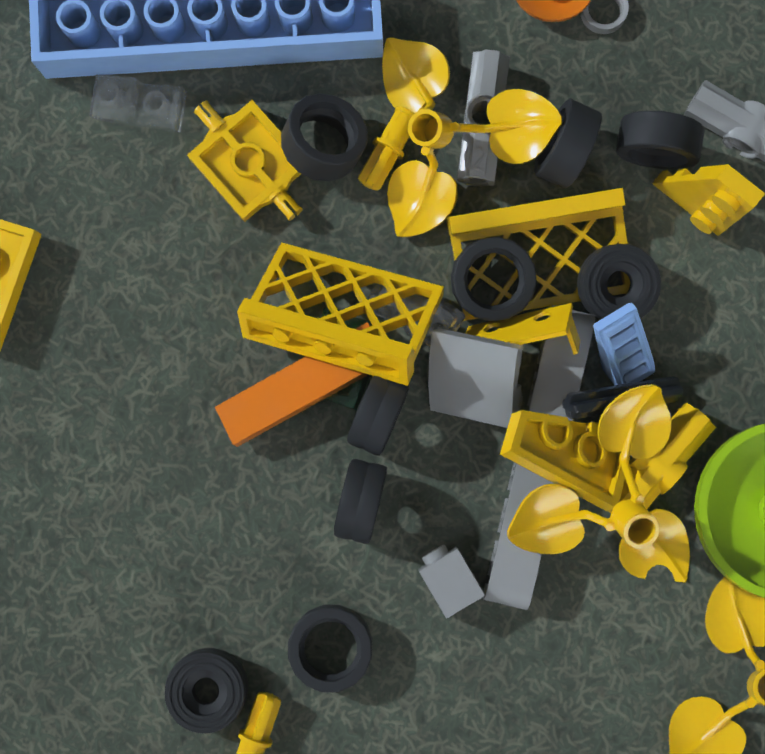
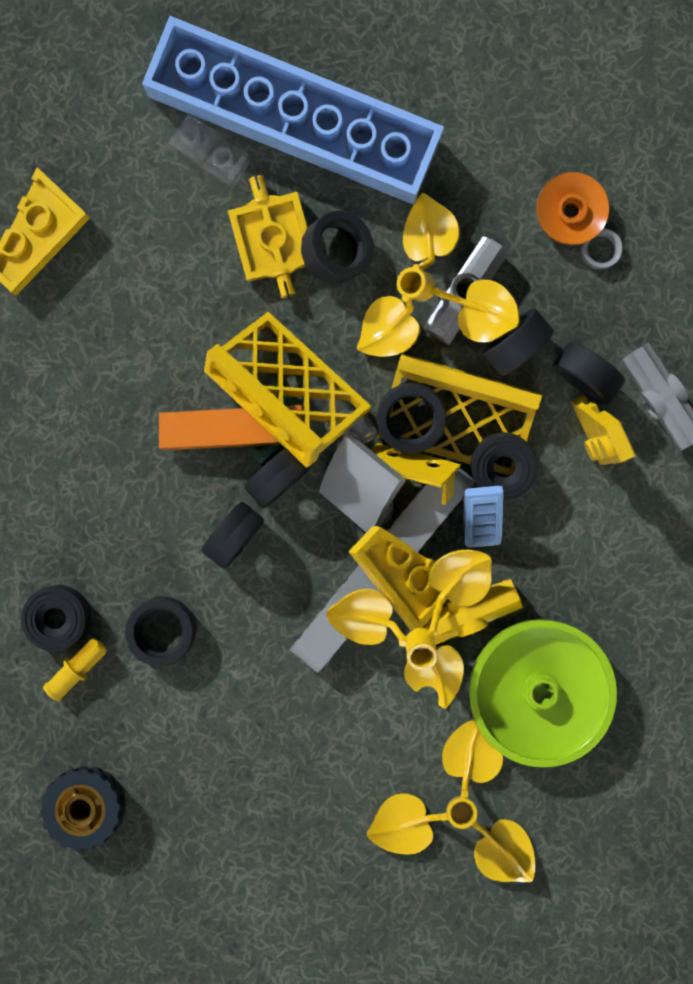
camera: 25 degrees right, 5 degrees up
(386, 150) = (381, 279): yellow axle -> none
(450, 580) = (271, 624): light grey brick -> none
(594, 401) = (441, 545): black axle -> none

